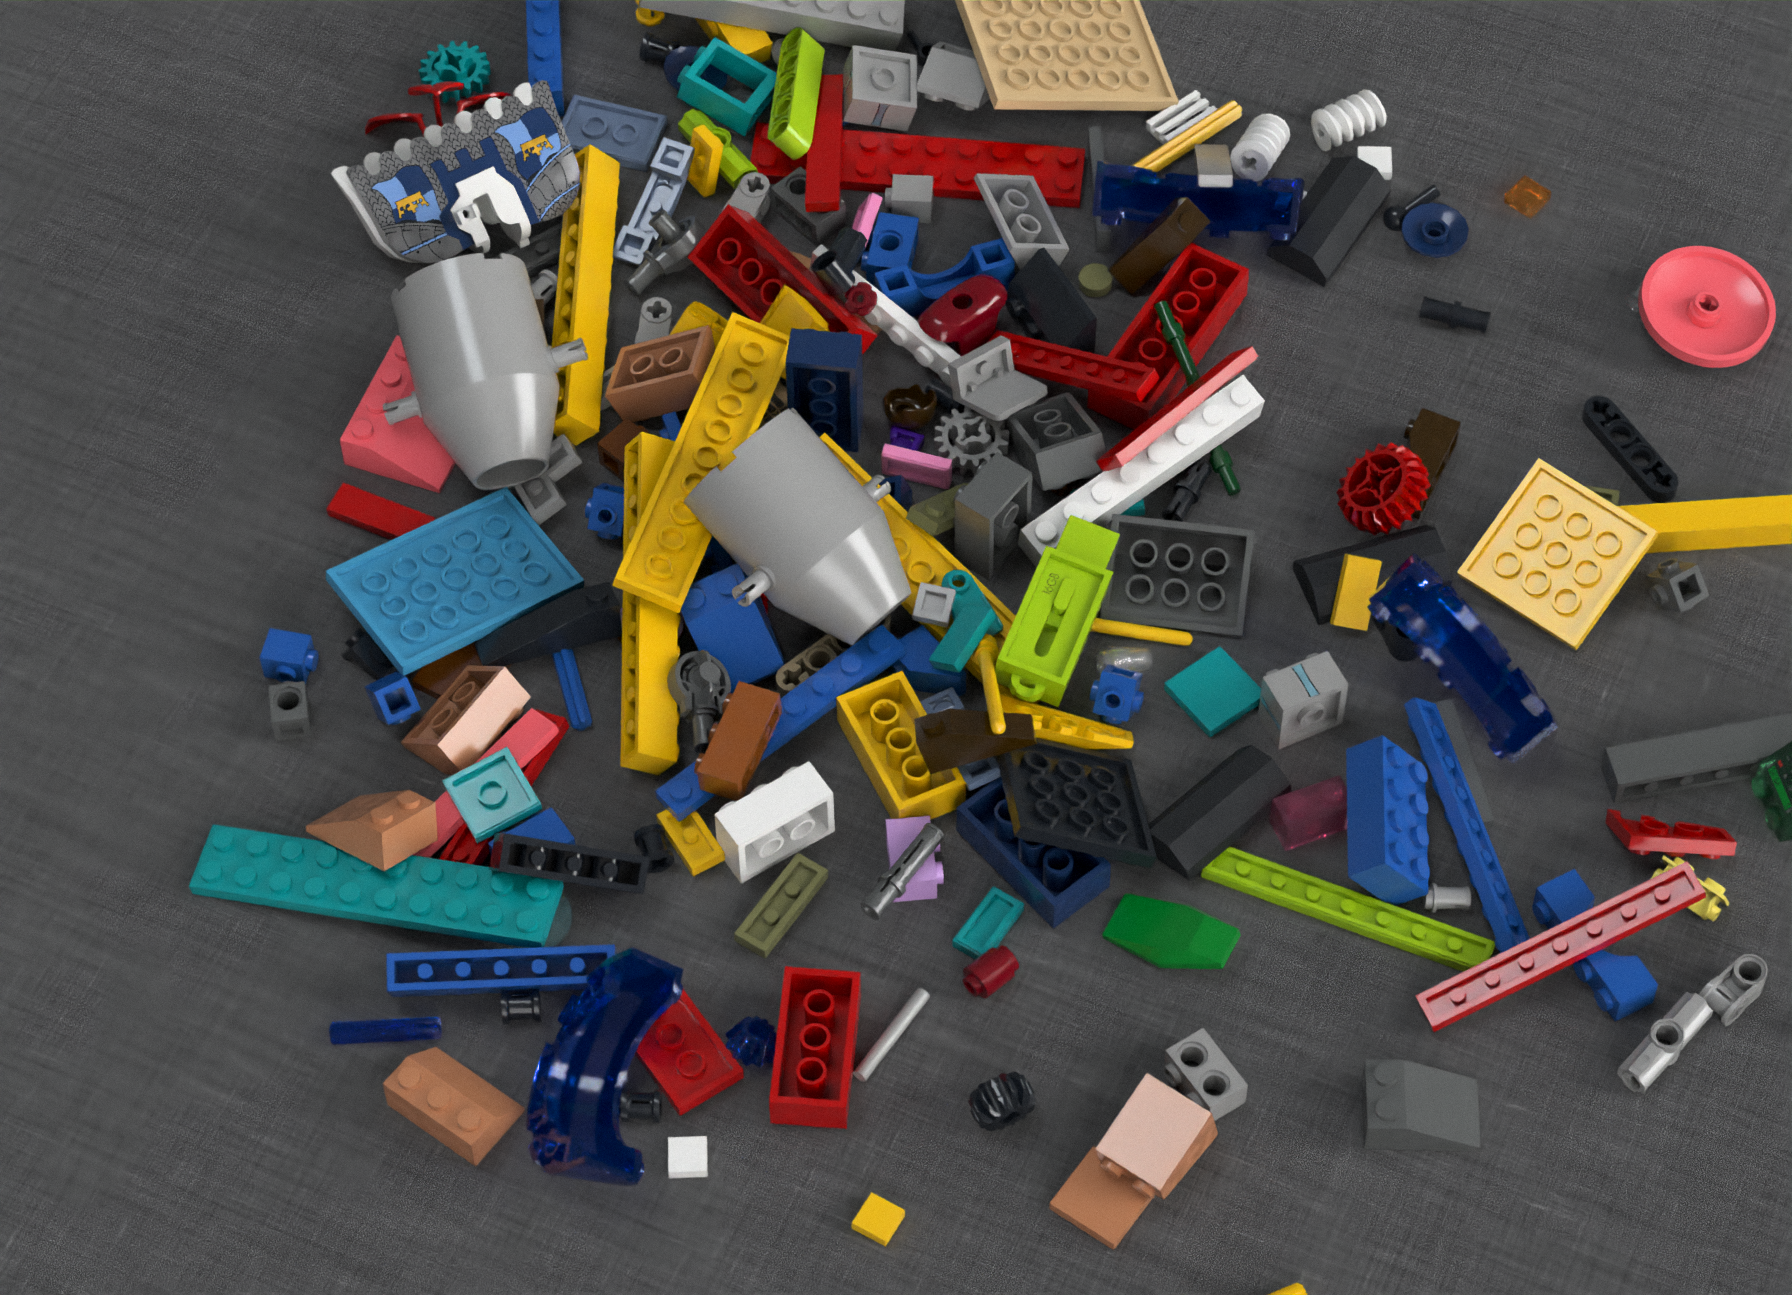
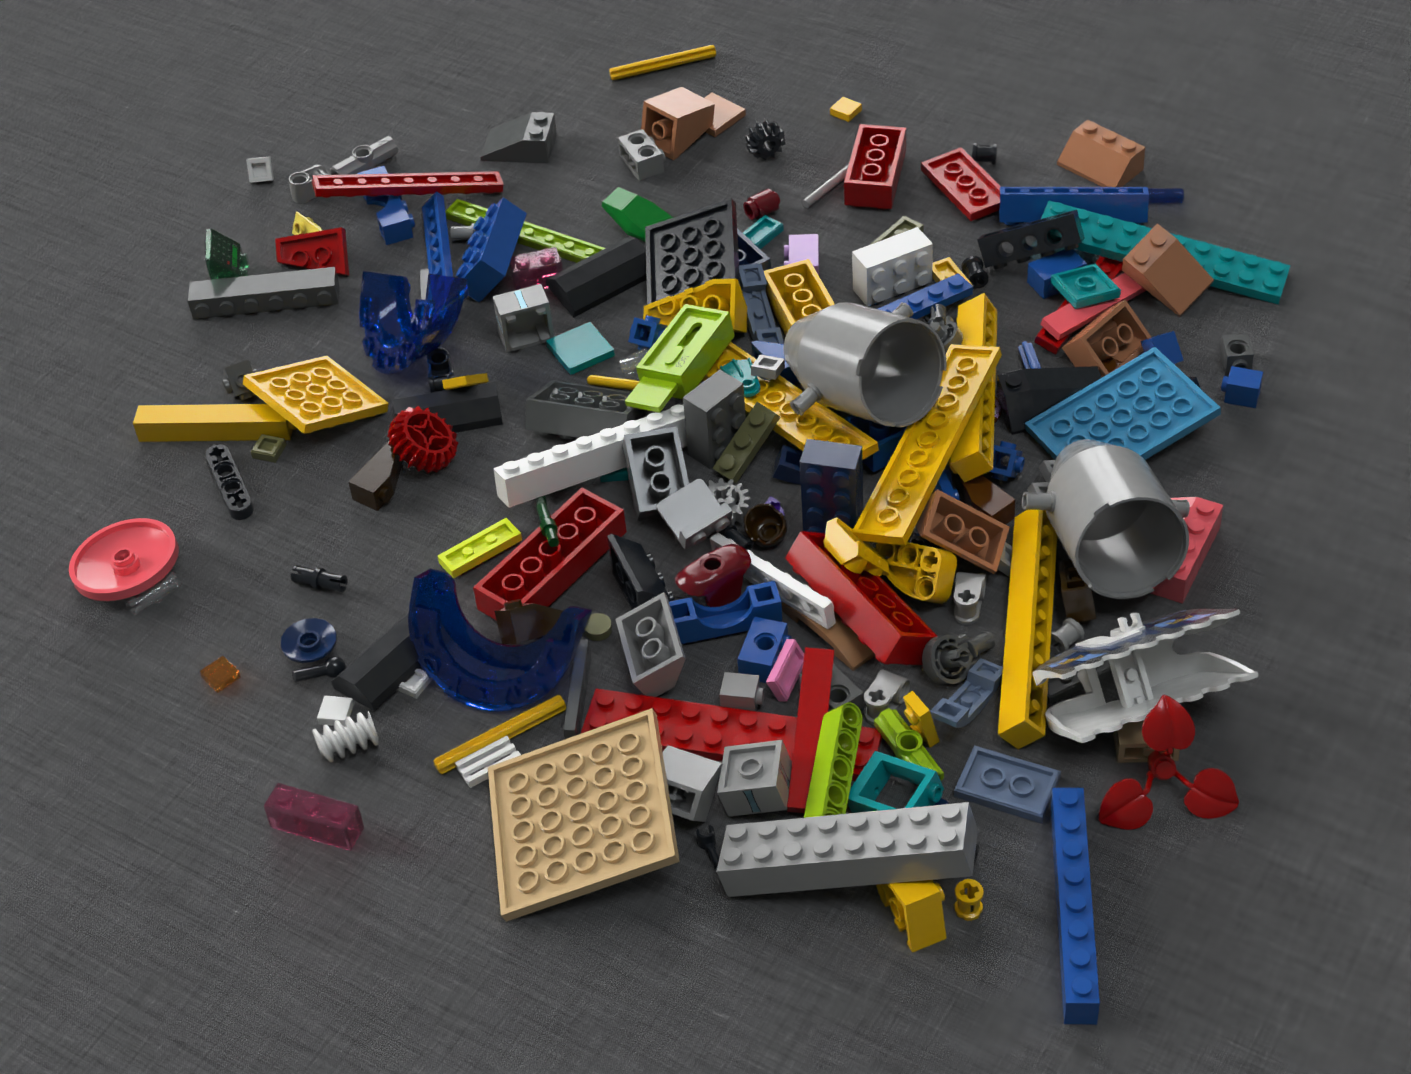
camera: 170 degrees left, 10 degrees down
(374, 513) = (1188, 482): red tile -> none
(456, 65) = (1157, 840): teal gear -> none
(585, 1069) = (1023, 134): clear blue windscreen -> none
(687, 1157) = (956, 137): white tile -> none
(738, 741) = (915, 282): dark orange brick -> none
(752, 1041) = (914, 177): clear blue piece -> none
(836, 265) = (809, 582): black piece -> none
(869, 299) = (795, 569): dark red plate -> none
(893, 883) = (817, 226): dark grey pin -> none
(916, 466) = (764, 486): bright pink tile -> none
(962, 638) = (750, 345): teal tile -> none
(965, 736) = (755, 266): dark brown slope -> none
(985, 656) = (736, 345): yellow piece -> none
(1080, 368) = (632, 513): red plate -> none
(1177, 409) = (559, 469): tile -> none
(1213, 165) = (475, 690): light grey tile -> none
(1260, 147) = (429, 708): white piece -> none
(1276, 359) = (479, 547): none -> neon yellow plate
(1351, 35) = (314, 816): none -> clear pink brick

